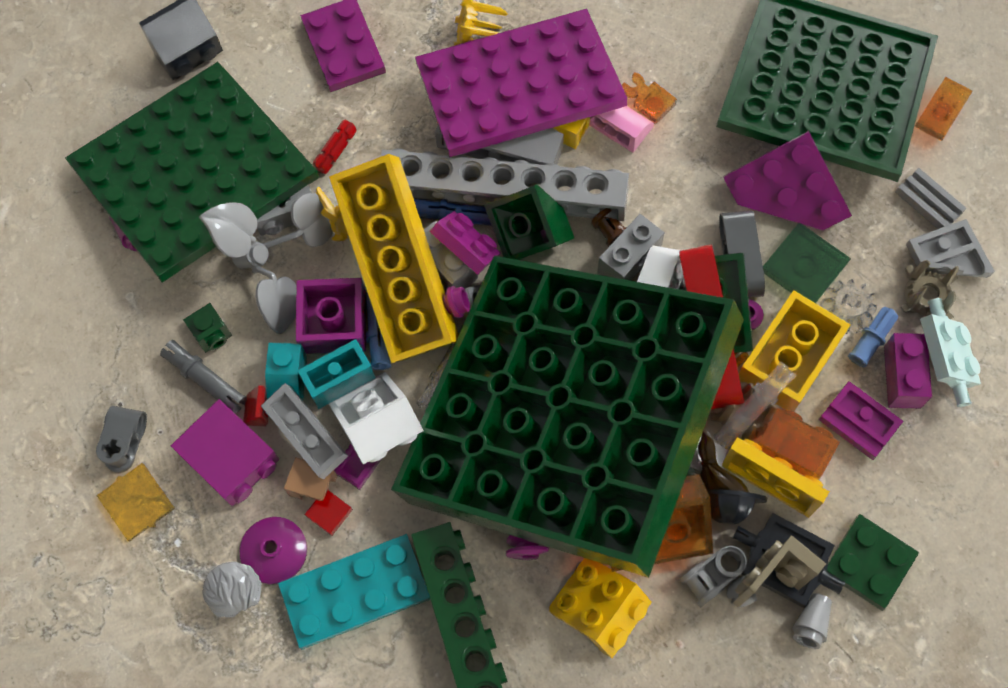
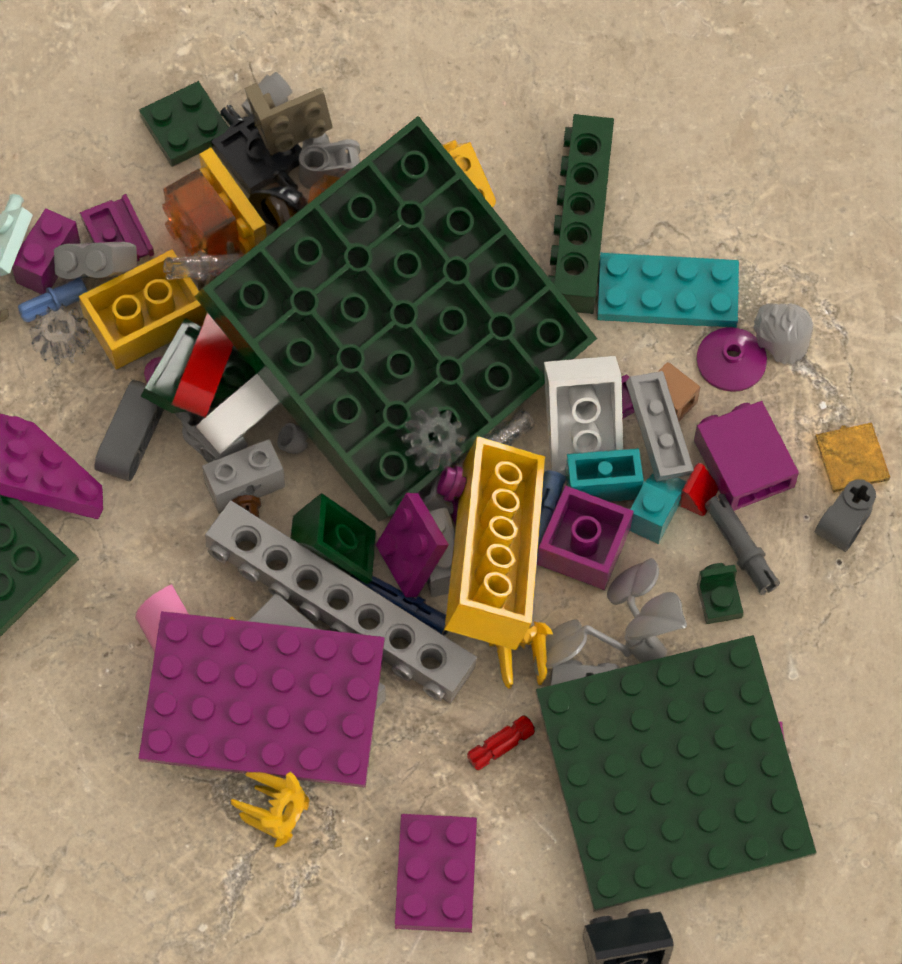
camera: 160 degrees left, 5 degrees down
(329, 512) = (656, 360): red tile -> none
(484, 315) = (426, 451): none -> clear gear
(651, 101) = (123, 638): clear orange plate -> none
(805, 263) = (71, 398): clear green tile -> none
(858, 367) = (94, 259): none -> light grey brick

